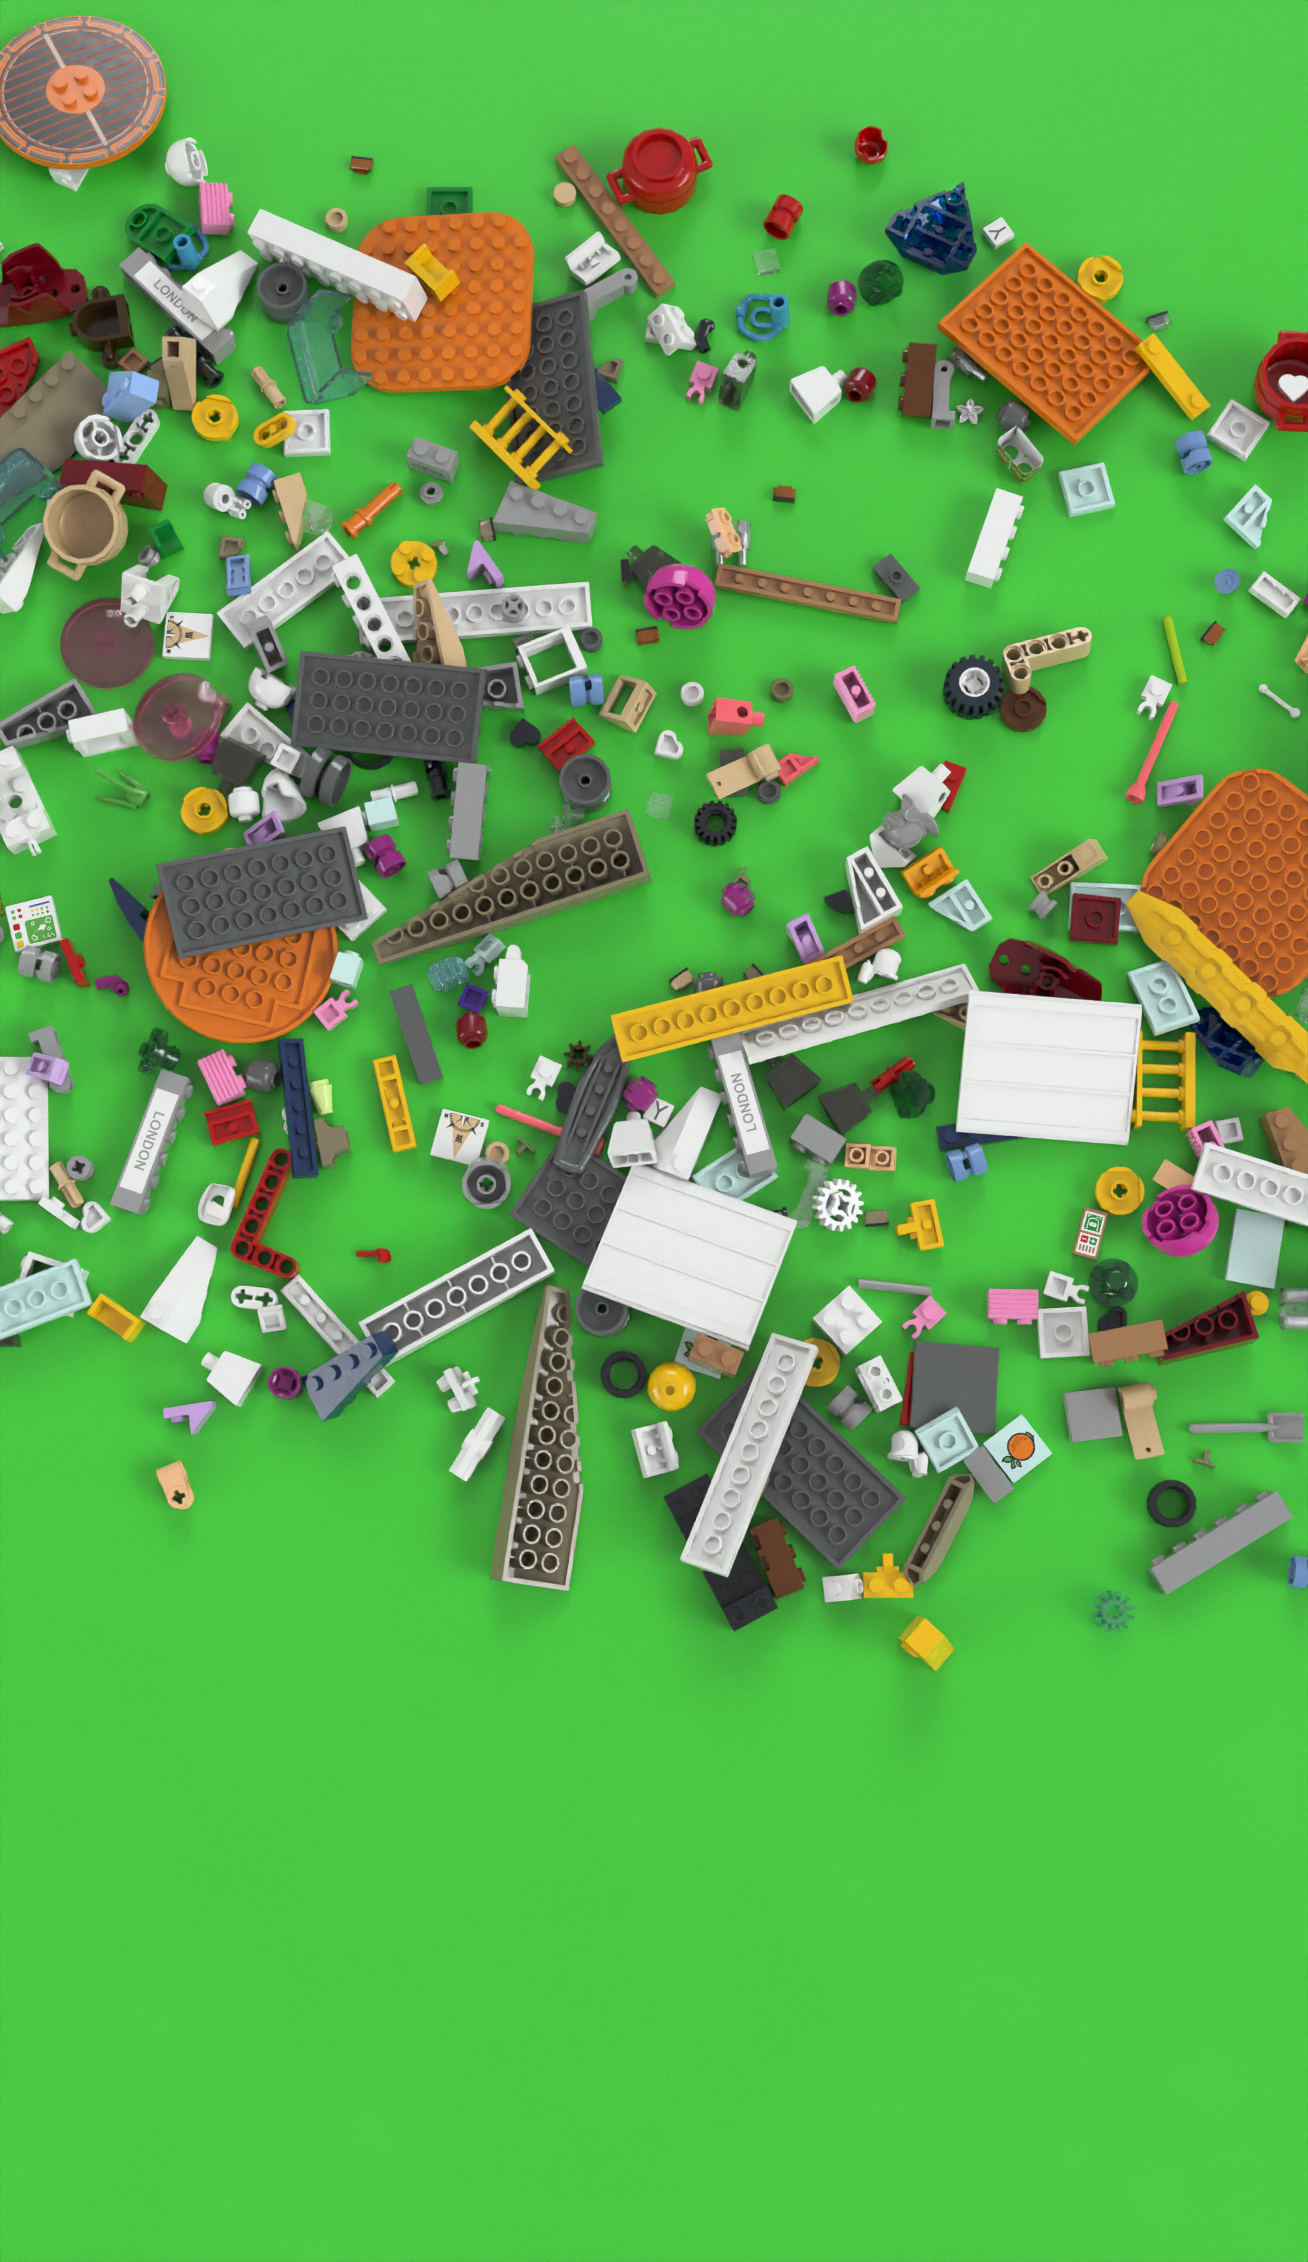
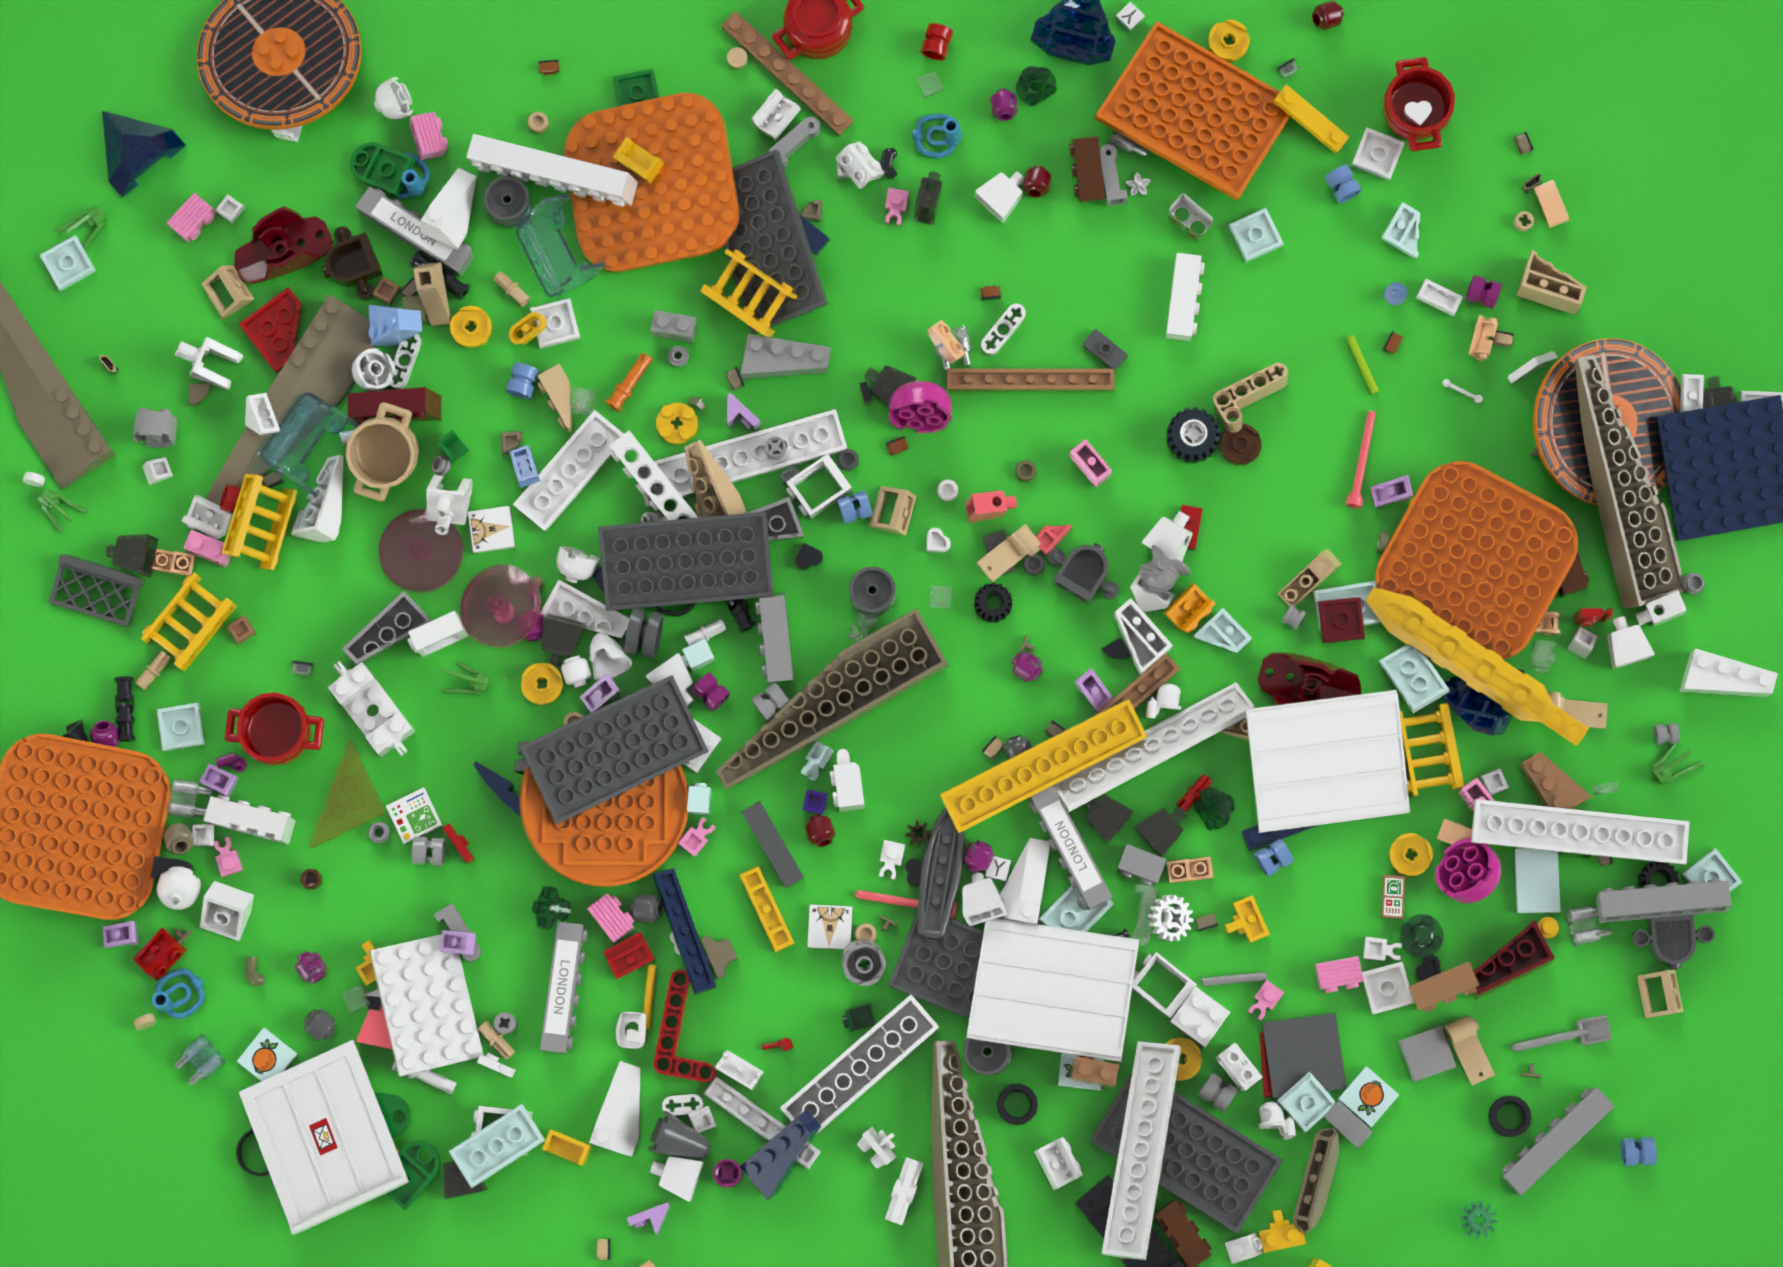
camera: 10 degrees left, 0 degrees up
(94, 1217) = (526, 1063): white tile -> none
(114, 982) = (498, 853): magenta arm -> none
(132, 1438) = (603, 1249): none -> tan piece
(223, 499) = (495, 400): white piece -> none
(240, 1334) = (678, 1139): none -> dark grey cone
(266, 643) = (565, 524): light grey brick -> none
(286, 759) = (606, 624): white tile -> none
(322, 1096) = (701, 914): yellowish green cone -> none
(325, 1272) = (739, 1070): none -> white hinge
(448, 974) = (789, 786): clear light blue gear -> none
(469, 1243) = (858, 1018): none -> dark green bracket
(566, 743) = (847, 559): red plate -> none
(671, 1386) = (1060, 1105): yellow cylinder -> none
(803, 1248) = (1178, 1000): none -> white window
(806, 530) = (1007, 314): none -> white beam
(821, 811) = (1083, 572): none -> dark grey piece
(1013, 414) = (1177, 183): dark grey head -> none
(1154, 695) = (1352, 407): white plate -> none
(1213, 272) = (1327, 15): none -> dark red head

